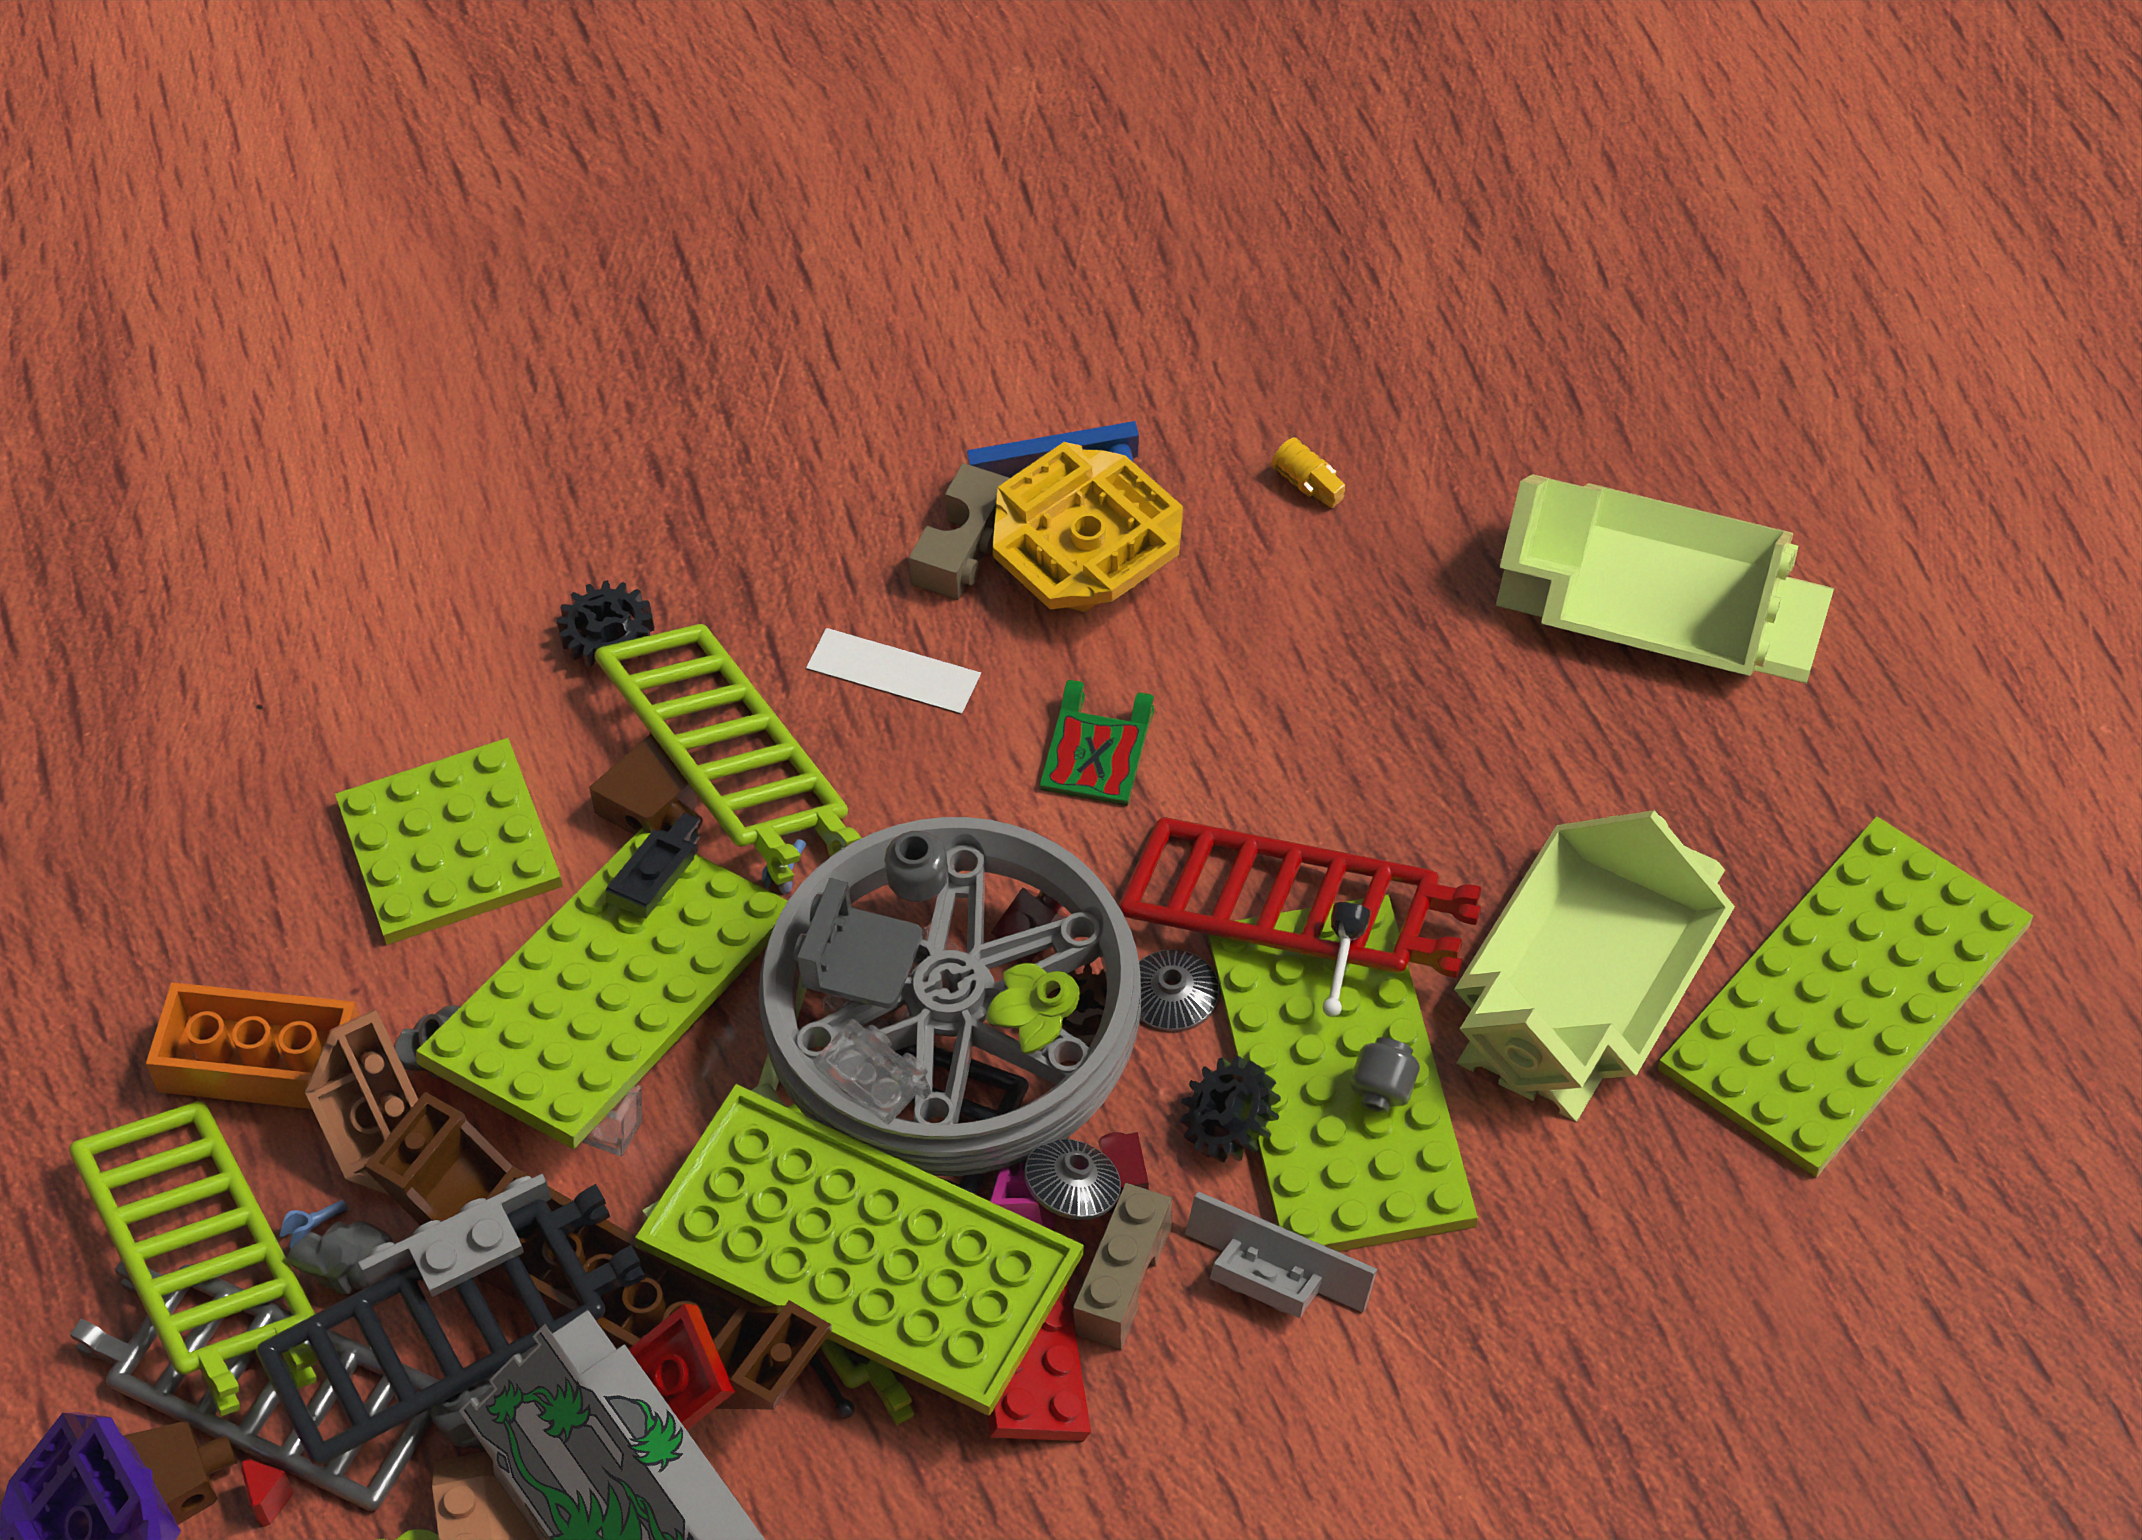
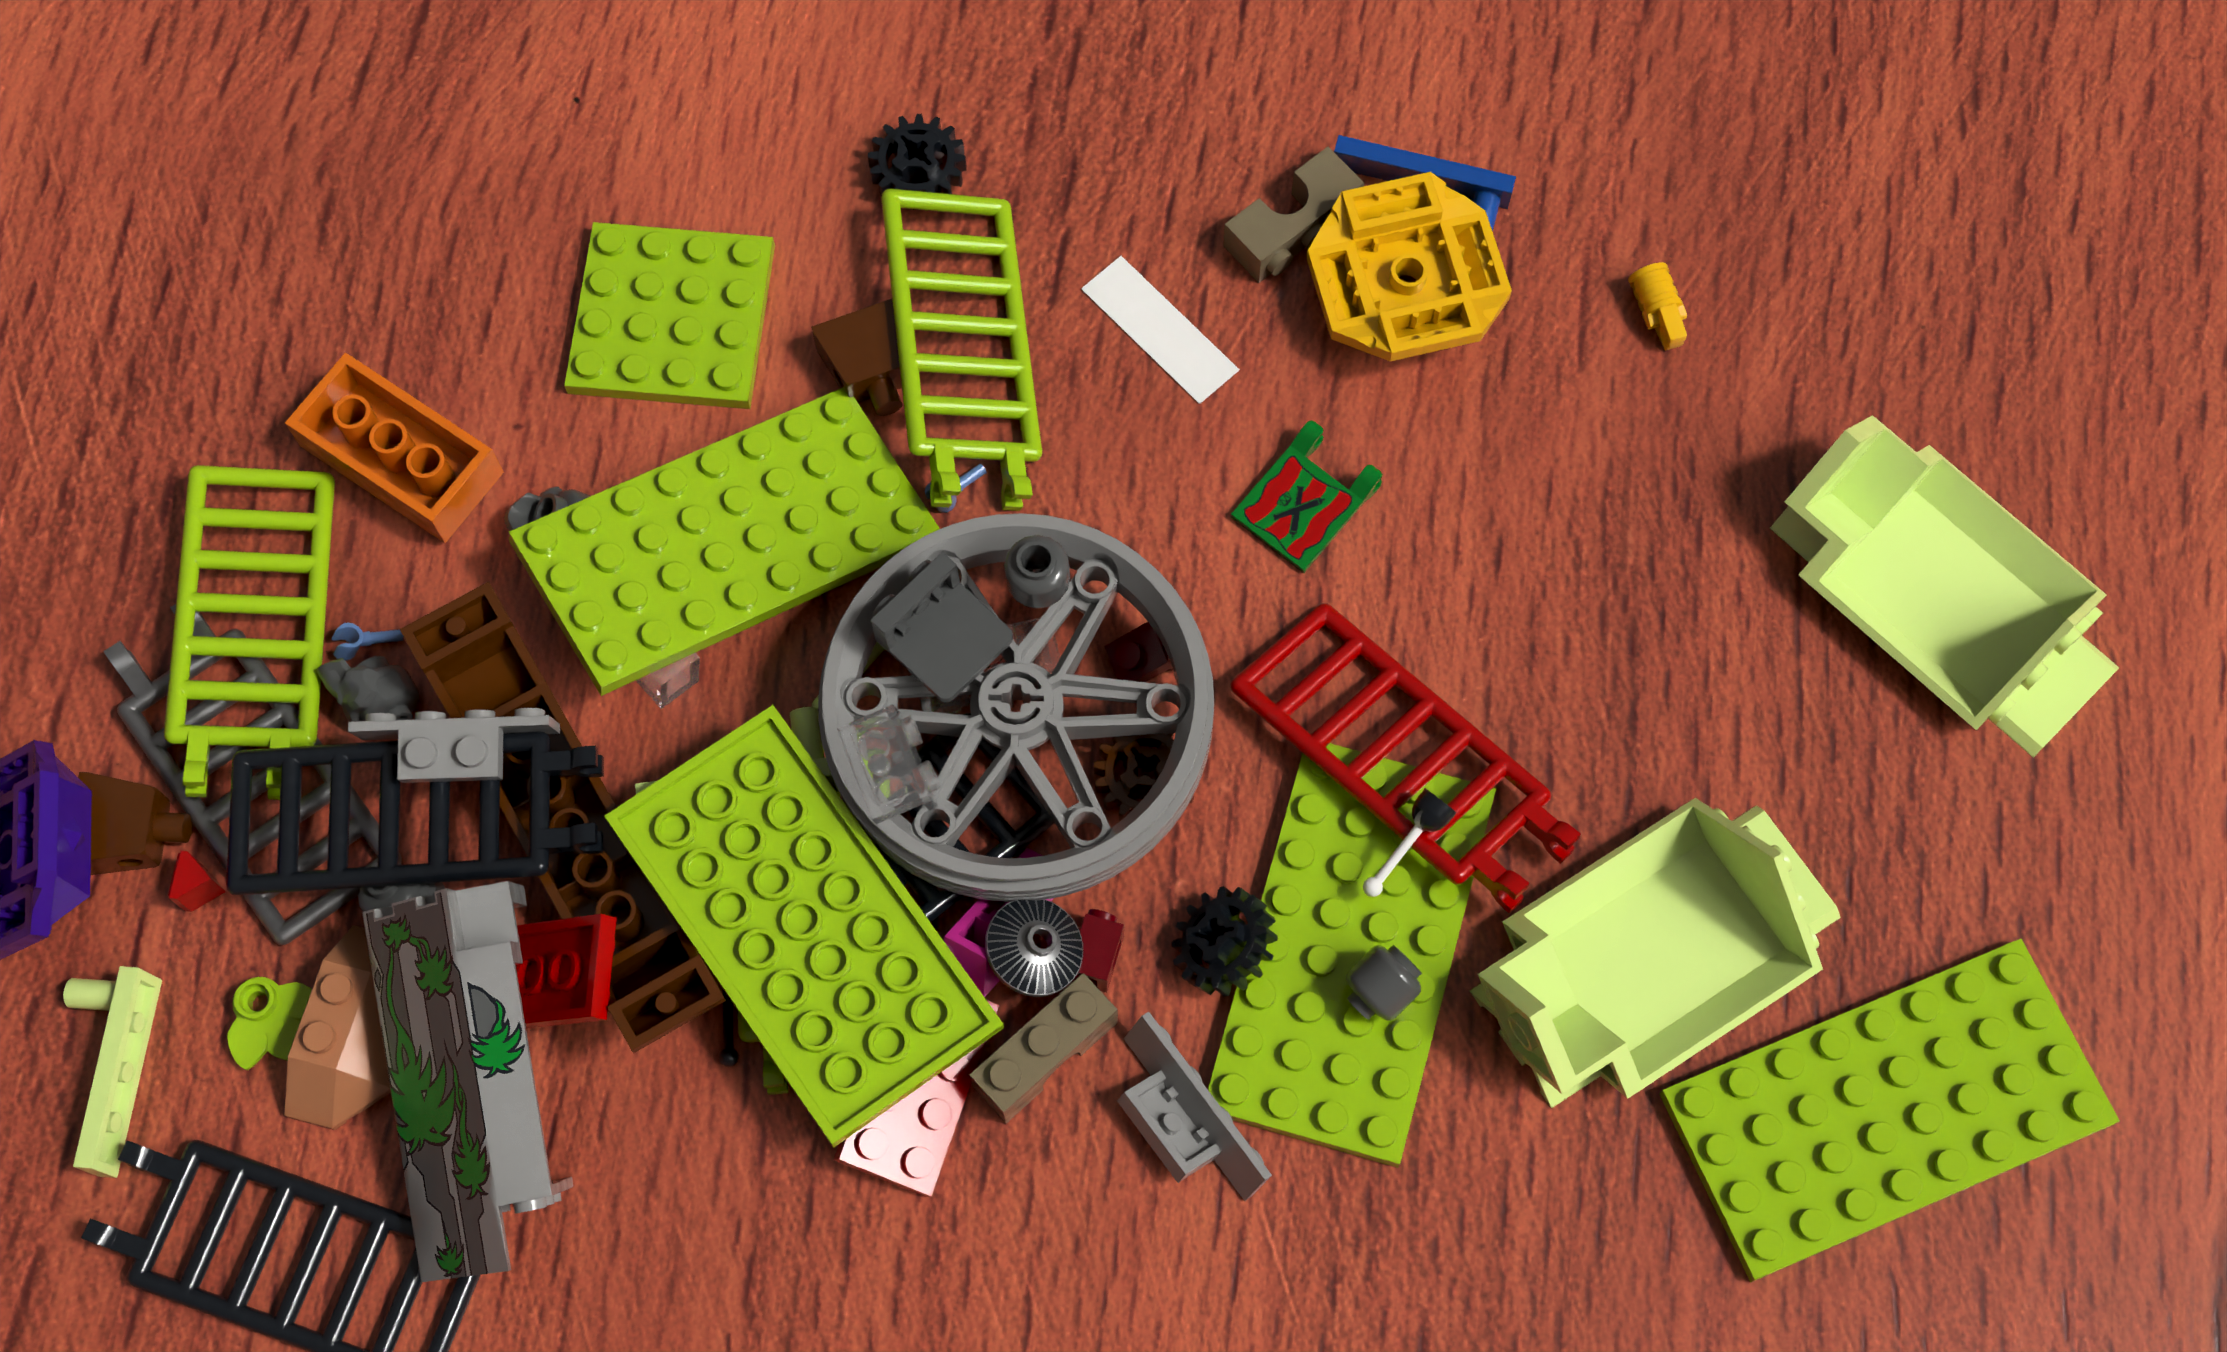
camera: 25 degrees right, 15 degrees up
(359, 1093) = (453, 545): nougat wedge -> none
(655, 867) = (825, 440): black hinge -> none
(1029, 1009) = (1068, 763): lime plate -> none
(1179, 1005) = (1239, 806): dish -> none

